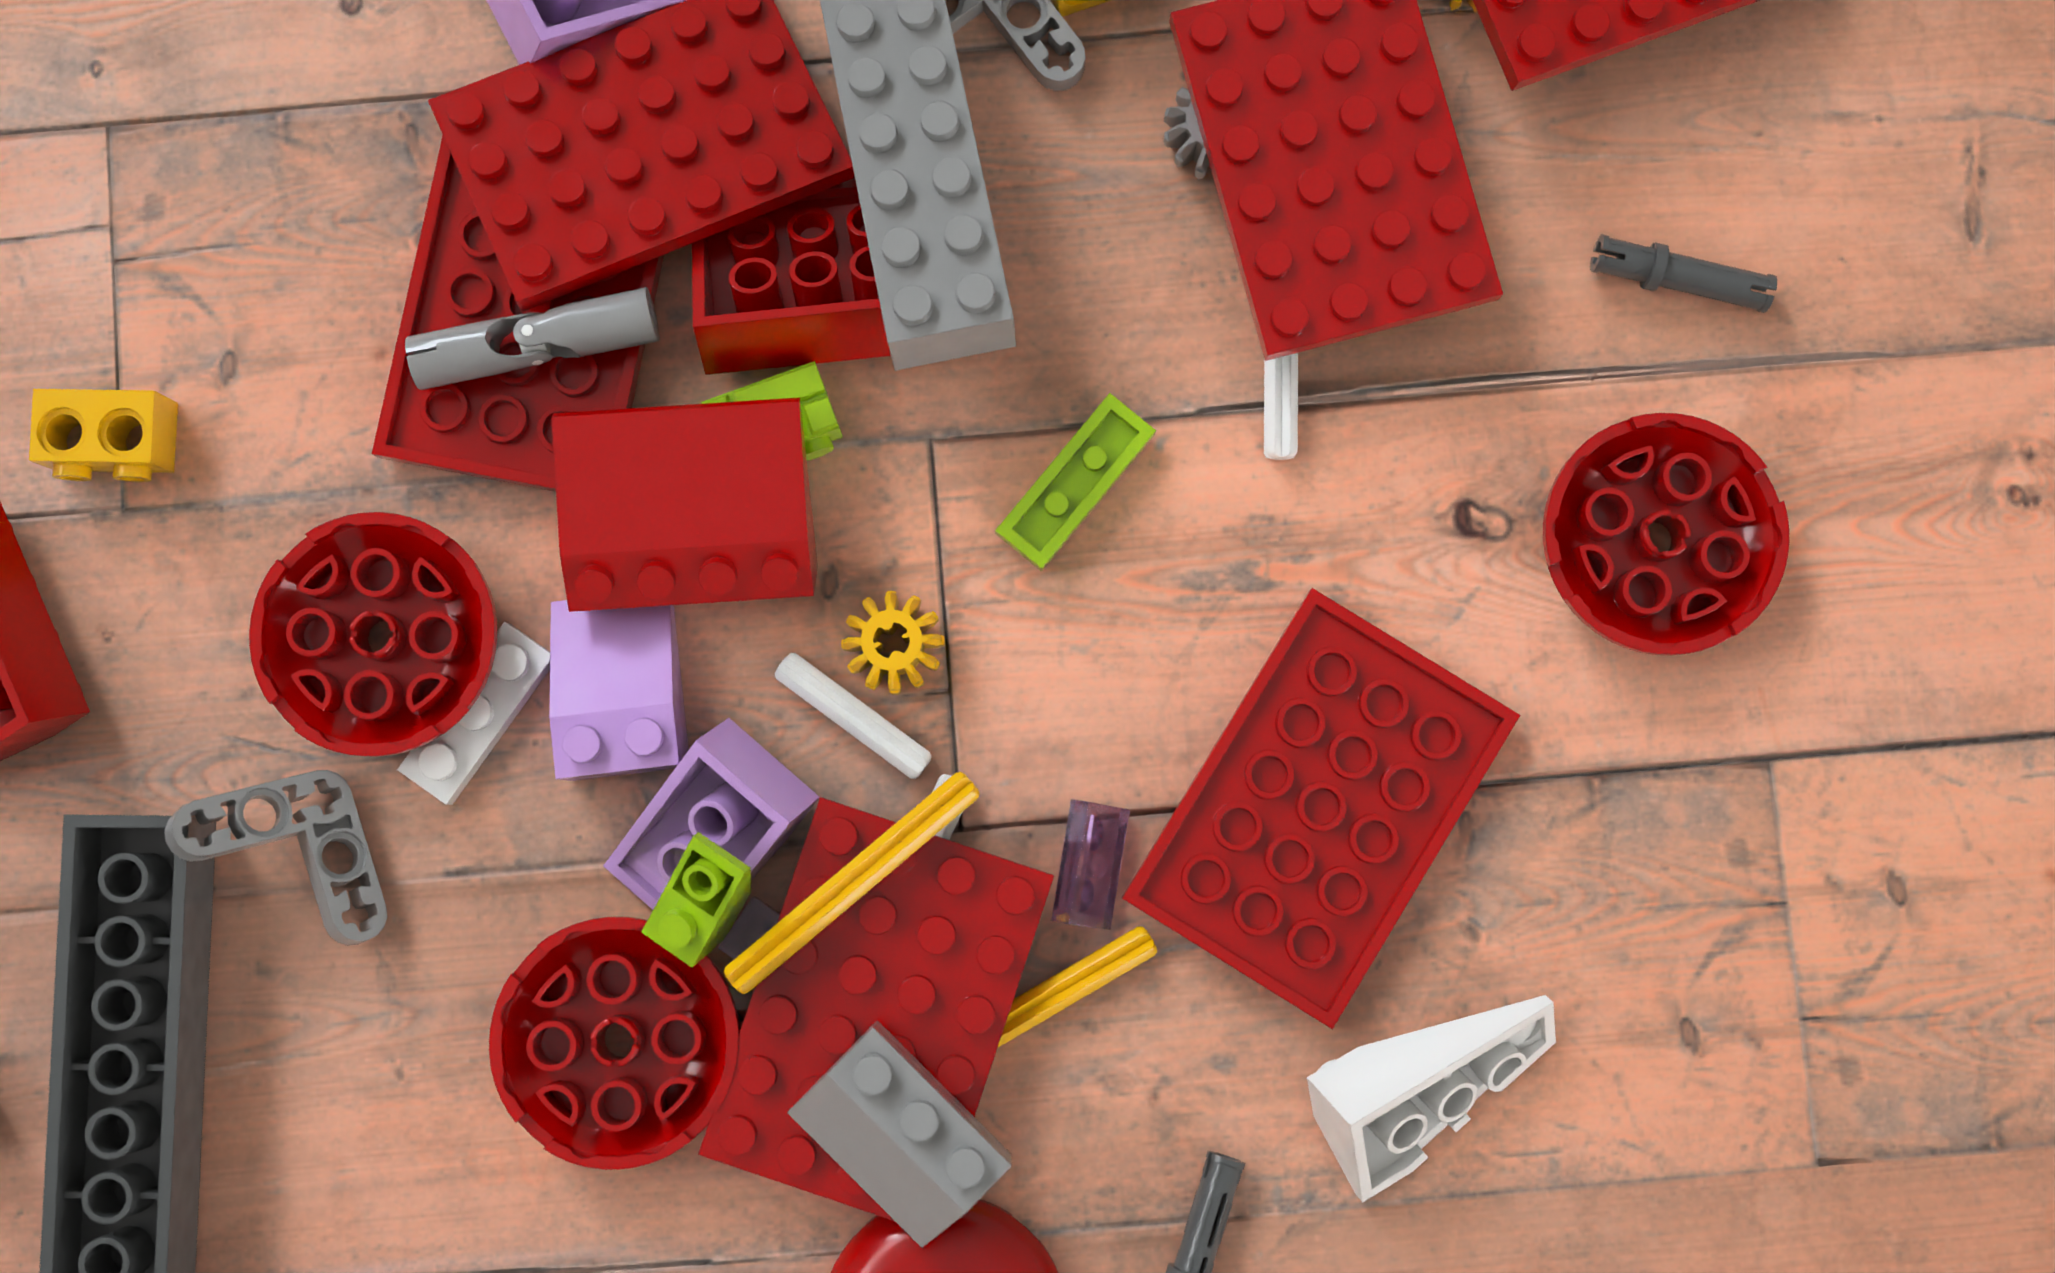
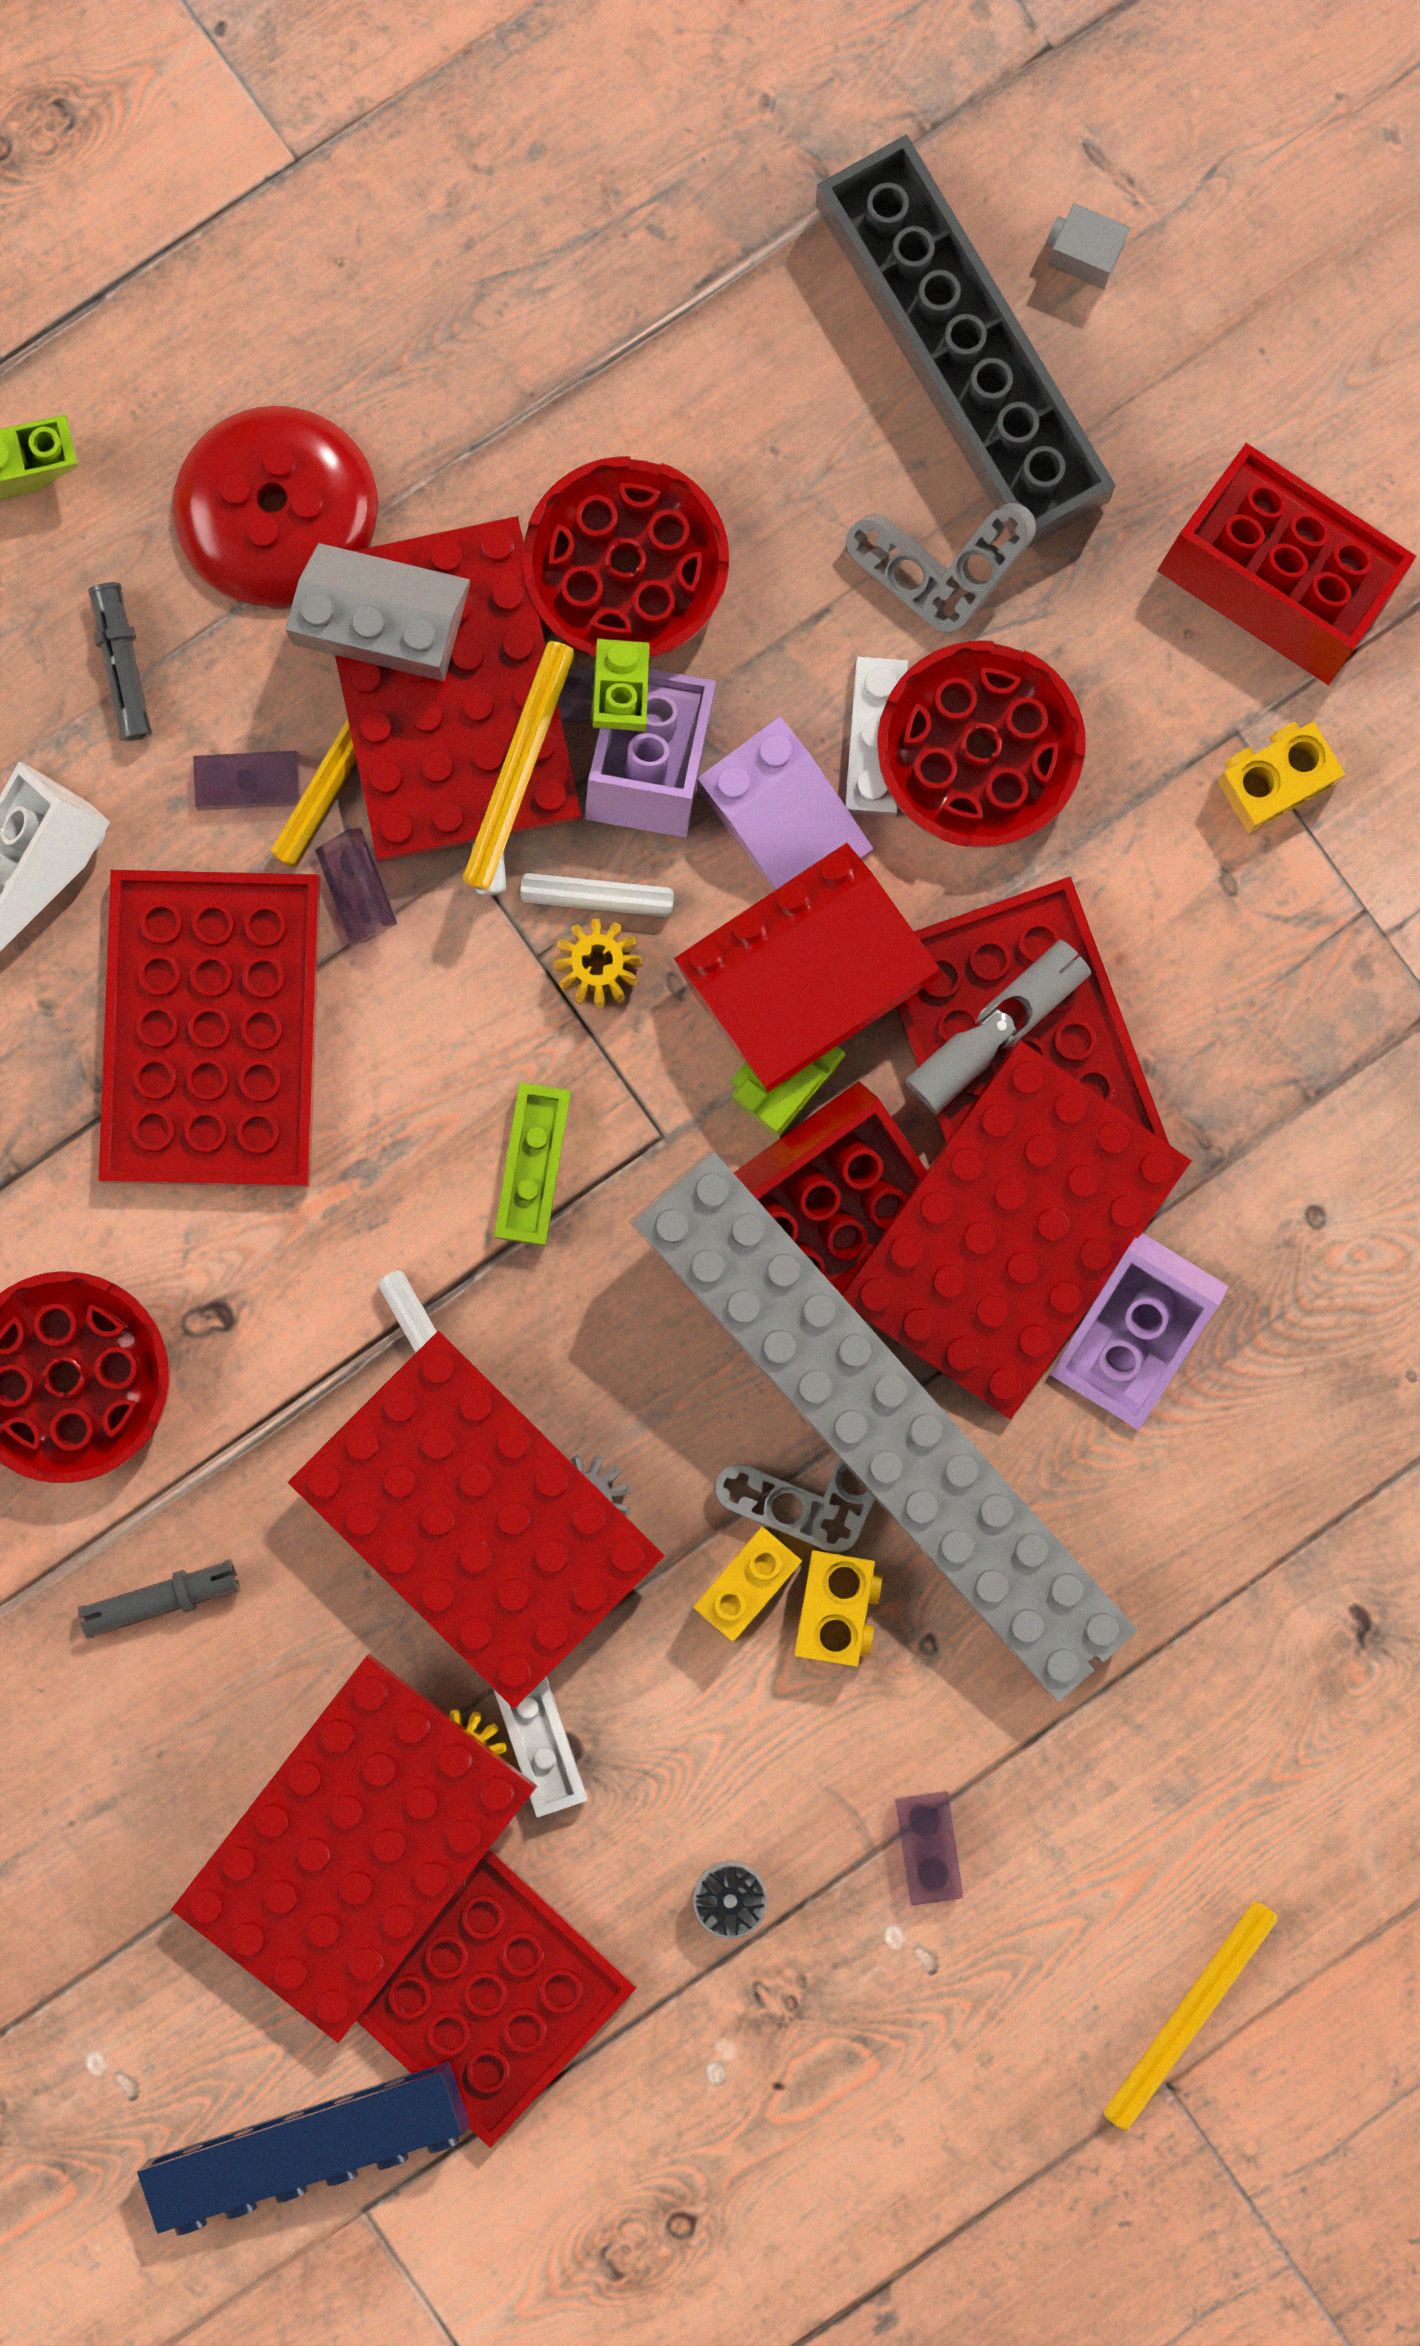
camera: 150 degrees right, 0 degrees up
(1138, 1044) = (246, 780): none -> clear purple plate

